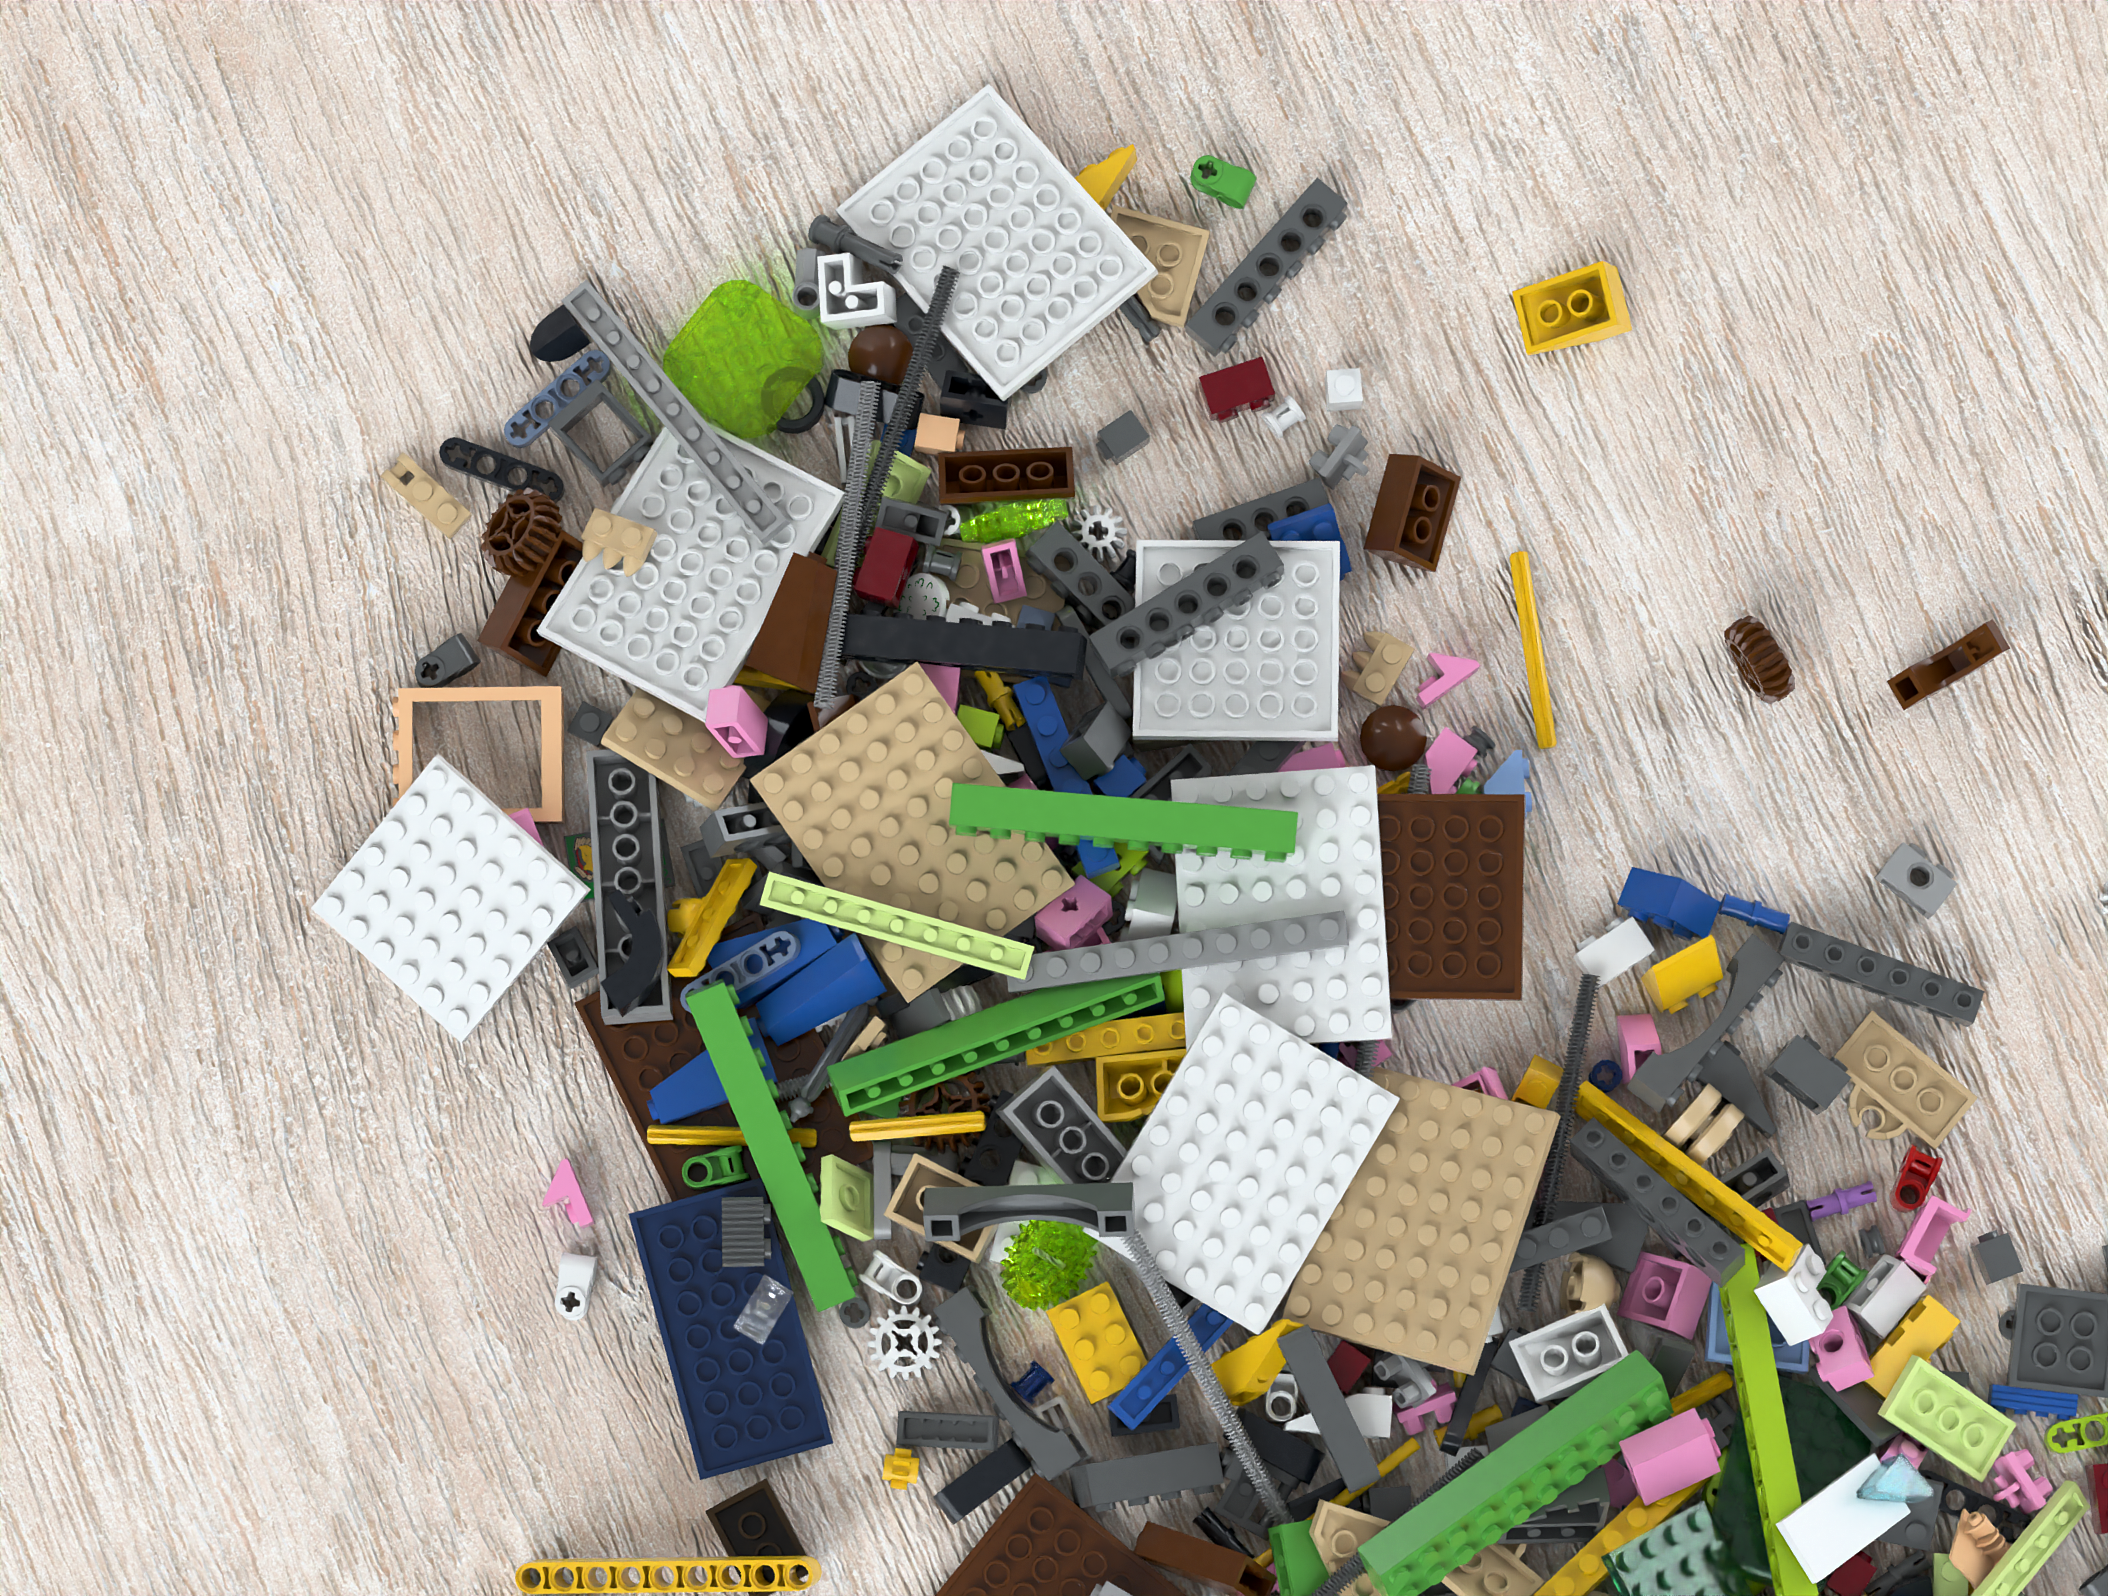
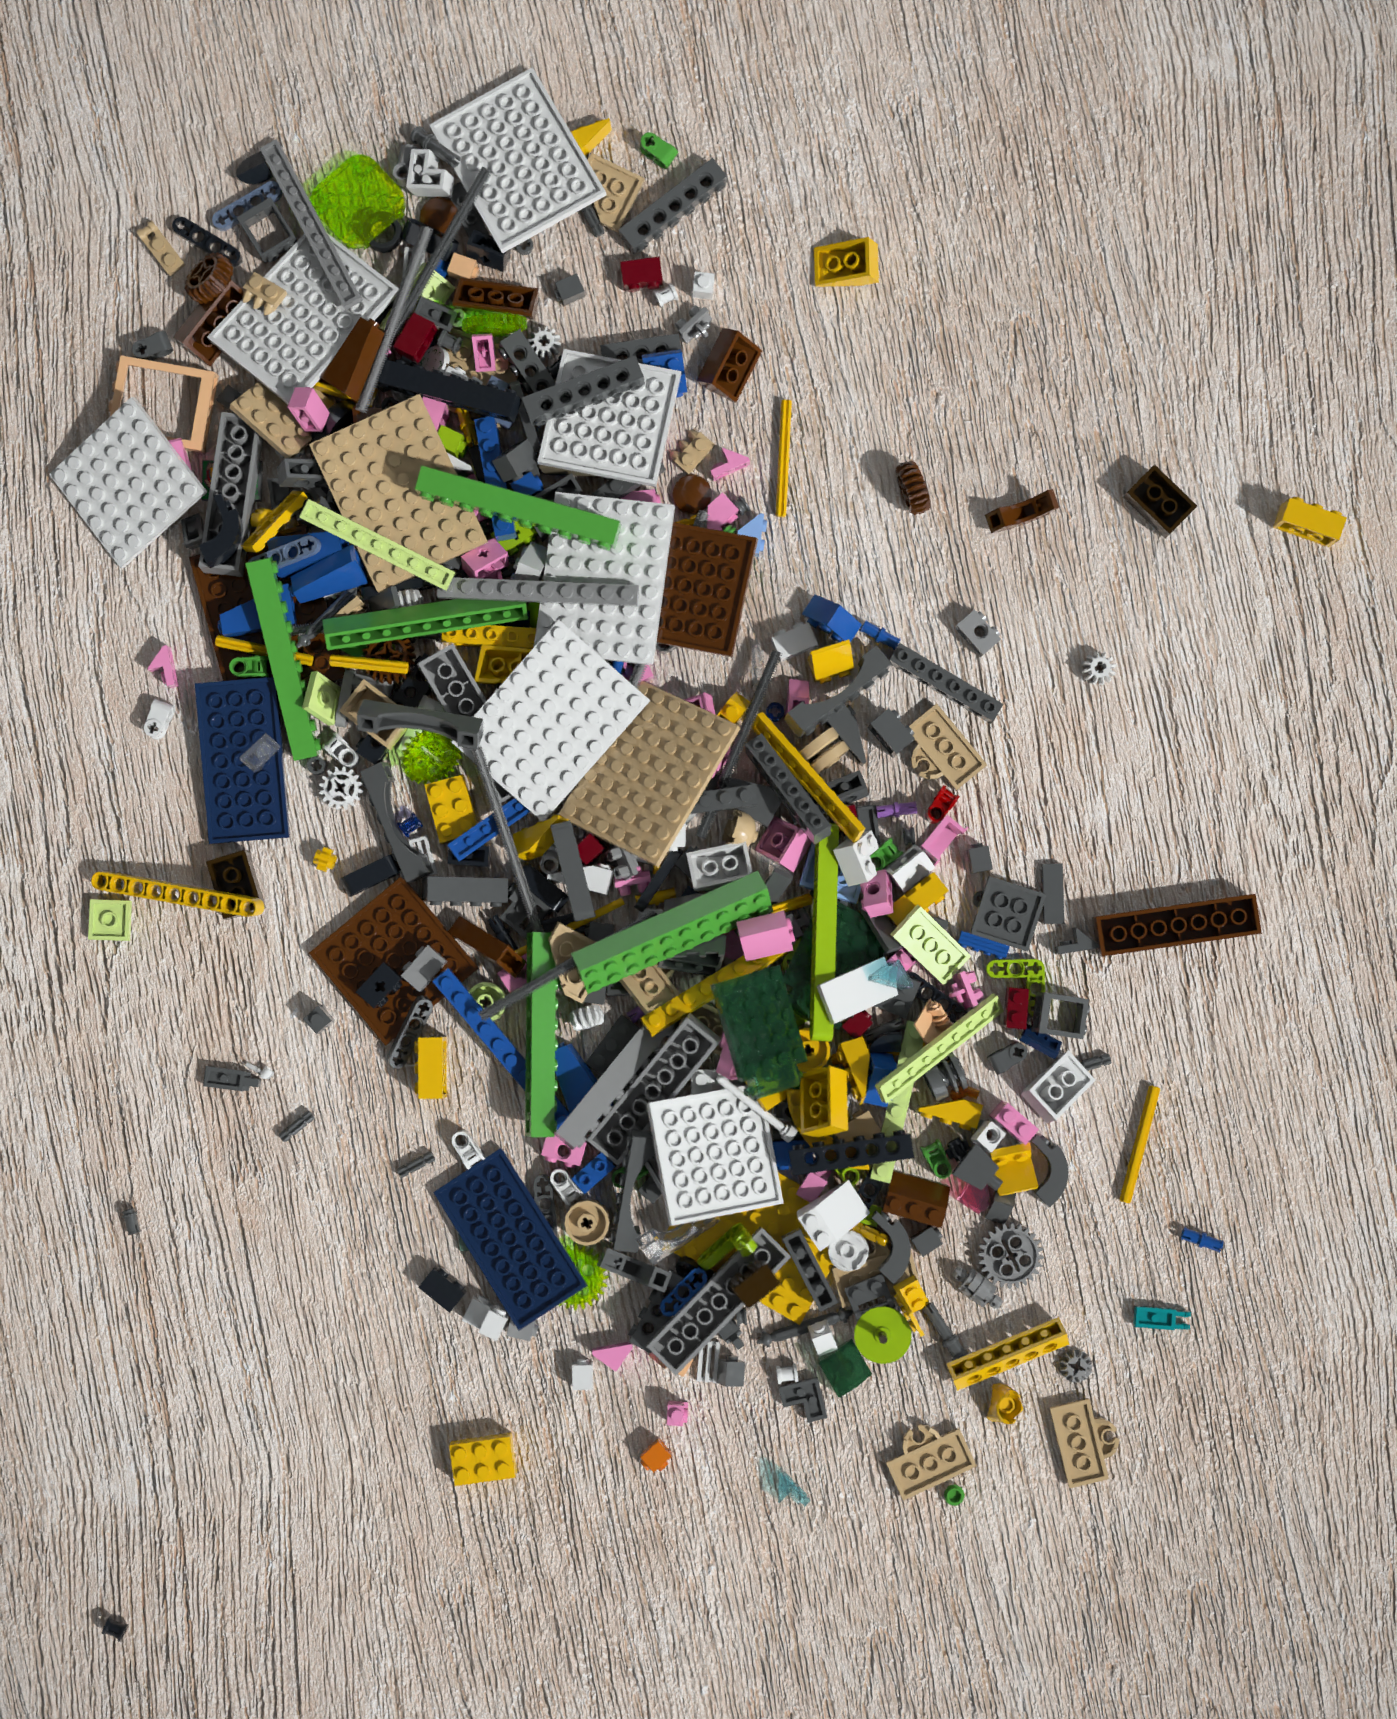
camera: 10 degrees right, 5 degrees up
(744, 1231) = (258, 705): dark grey brick -> none
(948, 1430) = (356, 842): dark grey plate -> none

